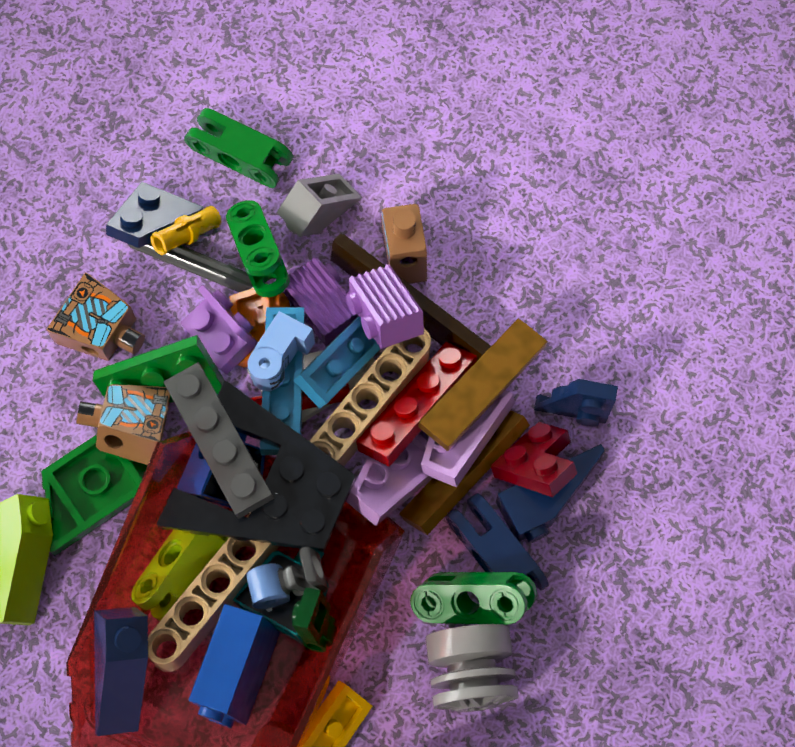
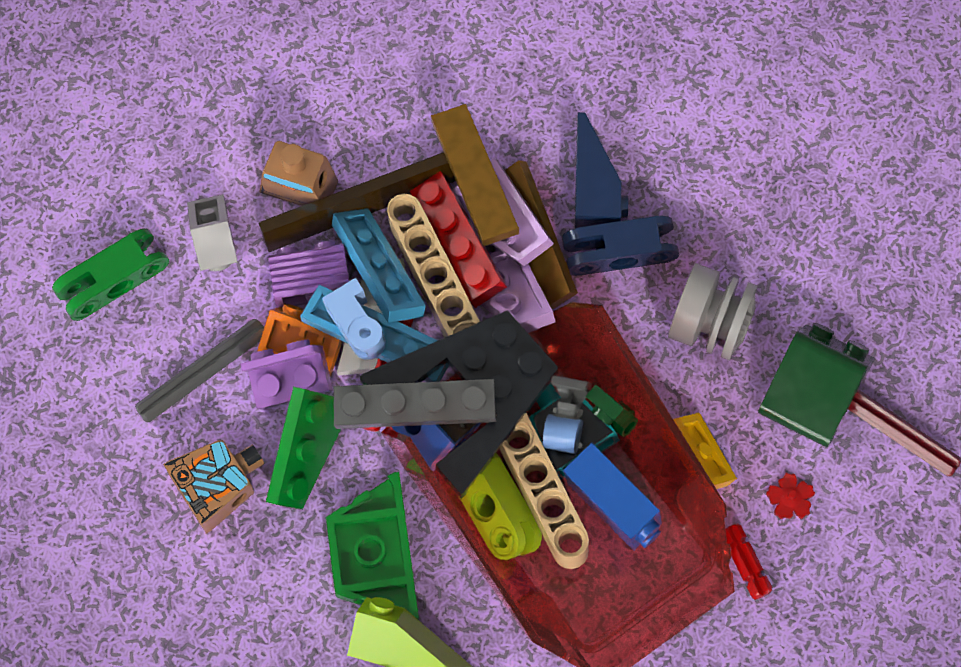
camera: 60 degrees left, 0 degrees up
(119, 669) = (566, 588): dark blue slope -> none
(128, 420) = (337, 489): torso -> none
(147, 212) = (133, 383): wing -> none
(185, 230) = (172, 373): yellow pin -> none
(257, 248) = (231, 300): green piece -> none
(384, 307) = (362, 214): medium lavender brick -> none
(501, 598) = (641, 306): green piece -> none
(534, 461) = (562, 175): dark red plate -> none
(580, 399) = (532, 107): dark blue wing -> none

